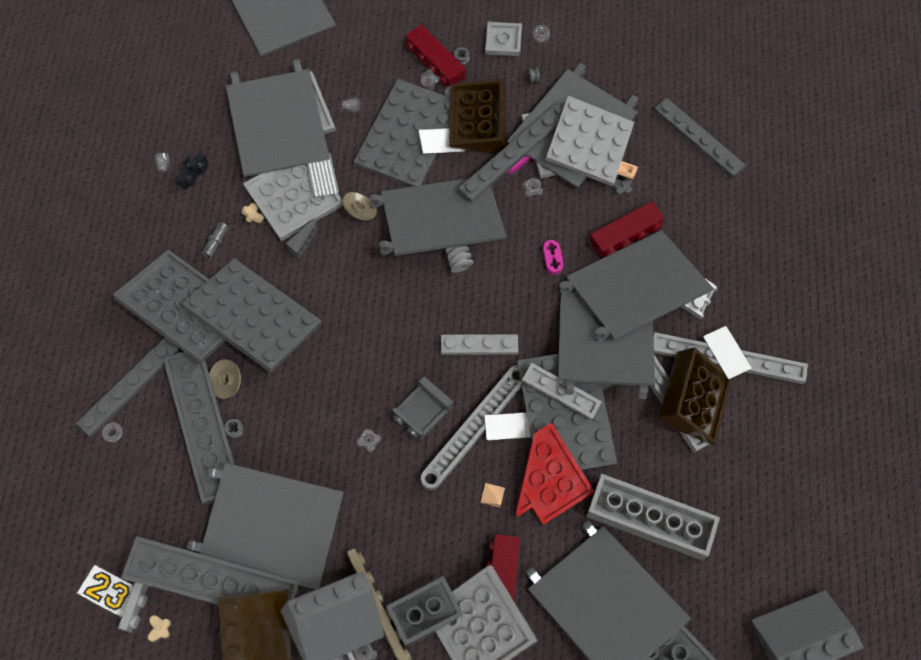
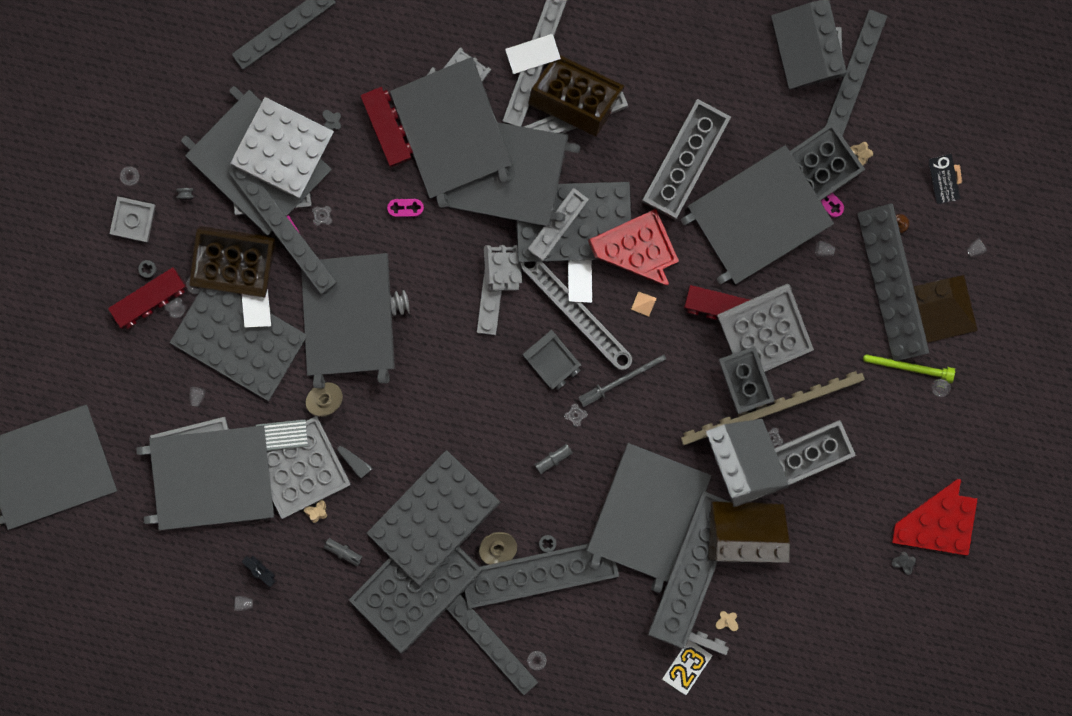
camera: 85 degrees left, 20 degrees up
(321, 423) = (553, 458): none -> dark grey pin
(394, 459) = (598, 392): none -> dark grey piece
(507, 348) = (502, 268): none -> light grey plate
(627, 170) = (318, 113): light nougat slope -> none

